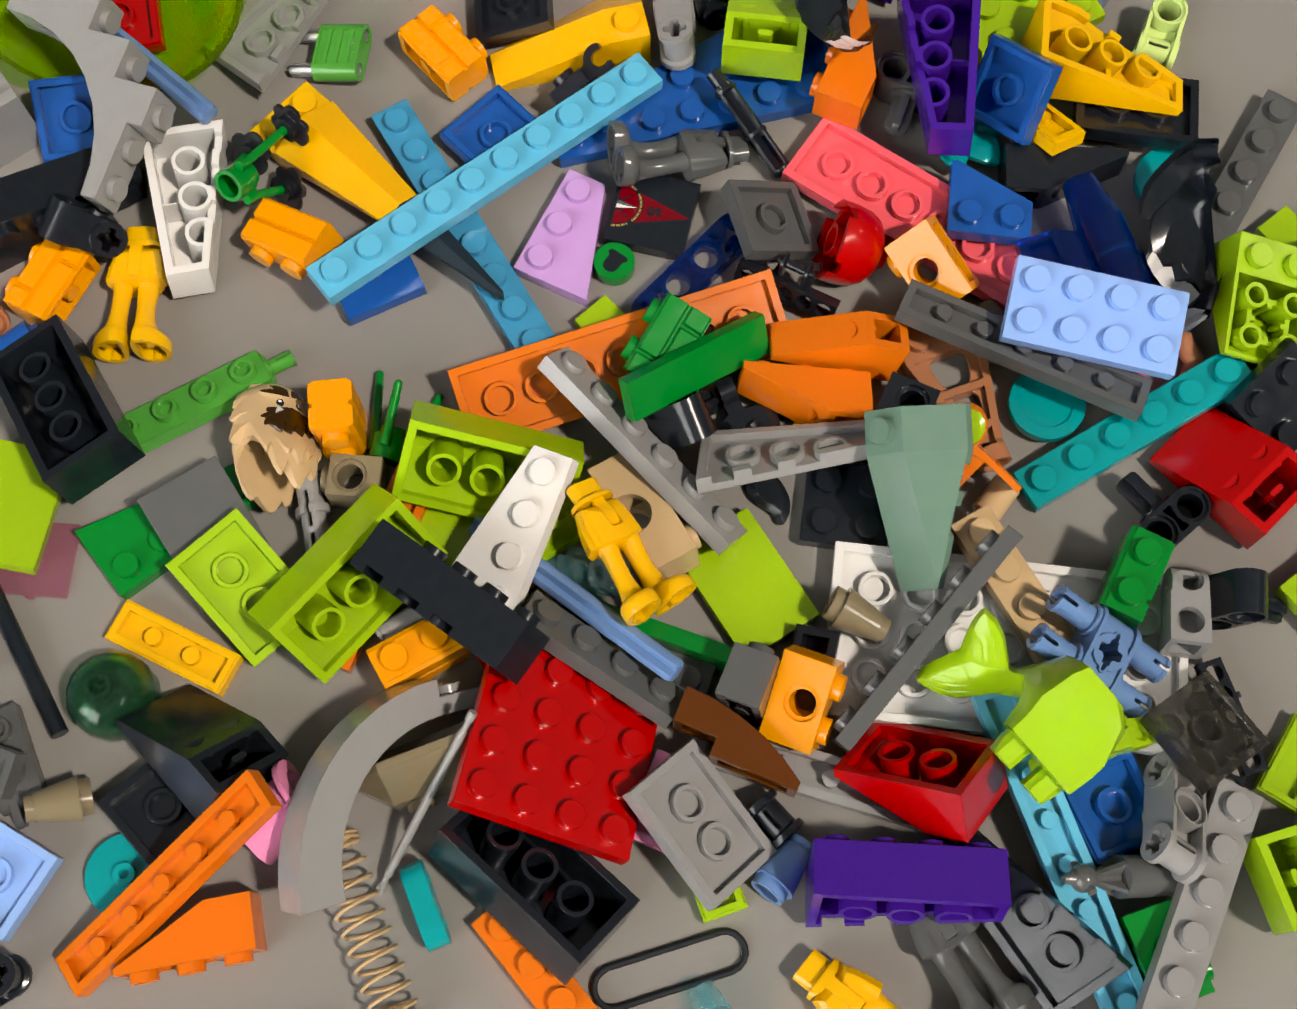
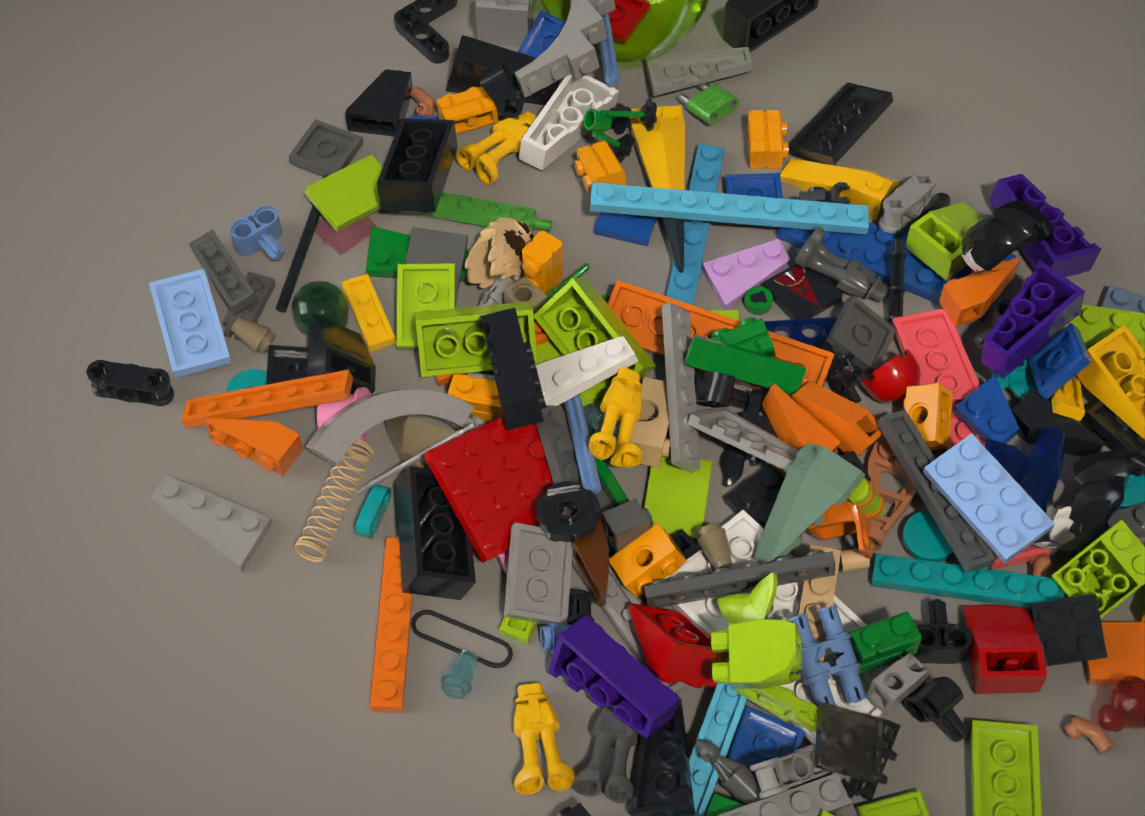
camera: 40 degrees right, 15 degrees down
(672, 698) = (568, 528): none -> black plate

